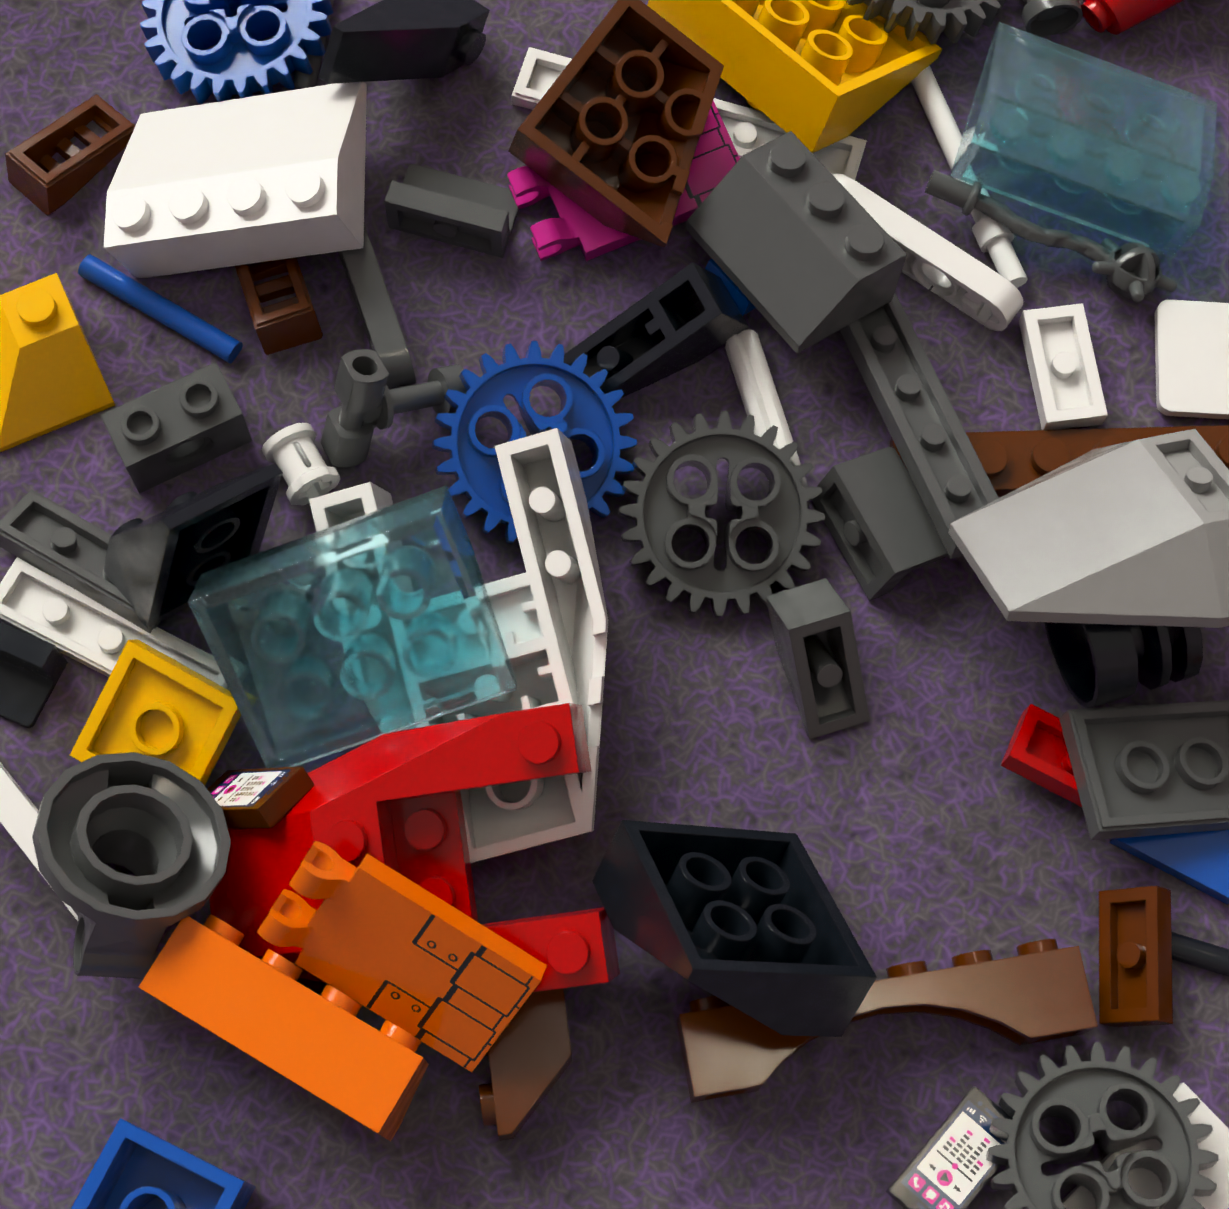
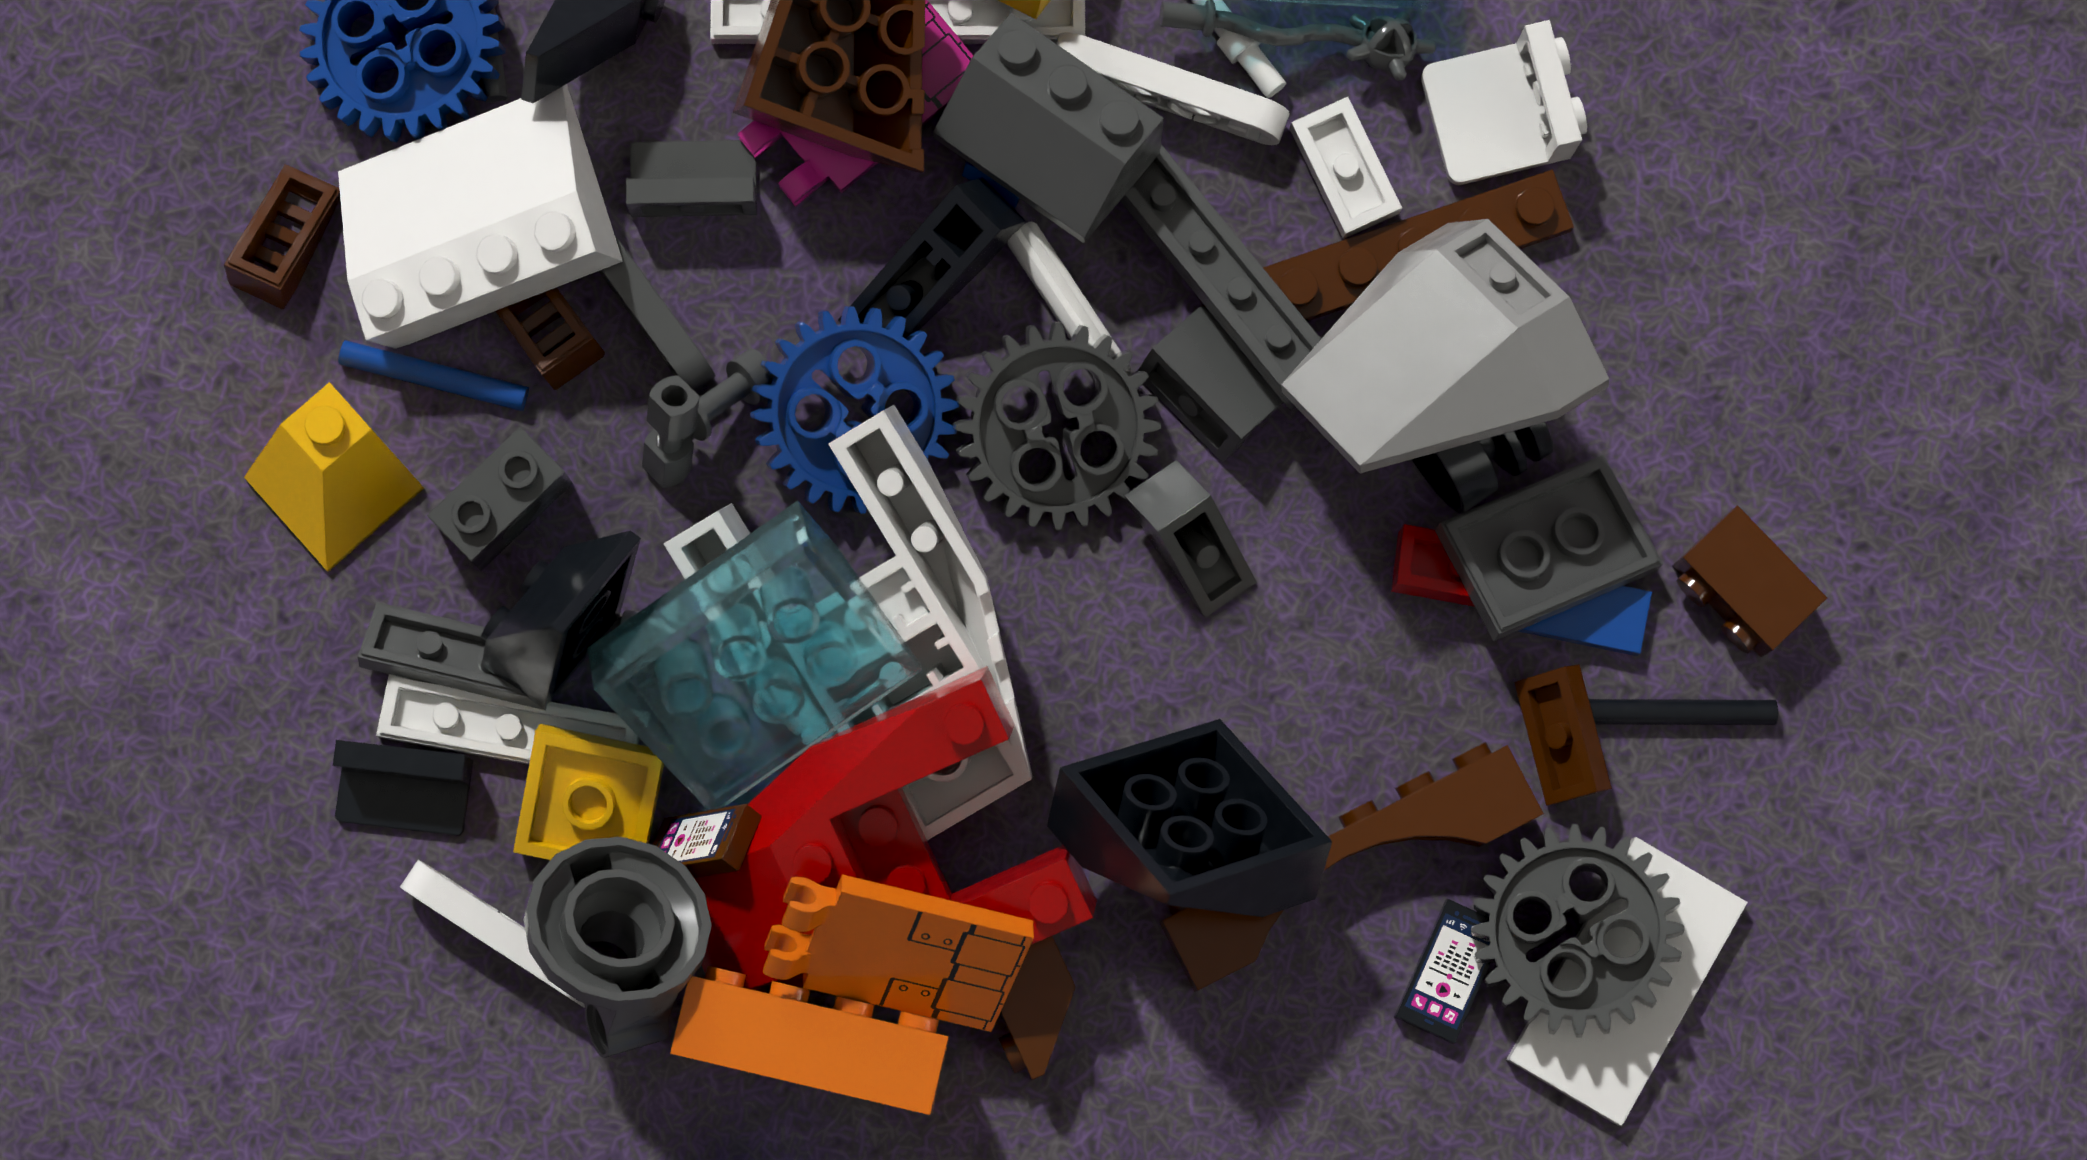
camera: 20 degrees left, 10 degrees up
(301, 463) = (632, 496): white bush -> none

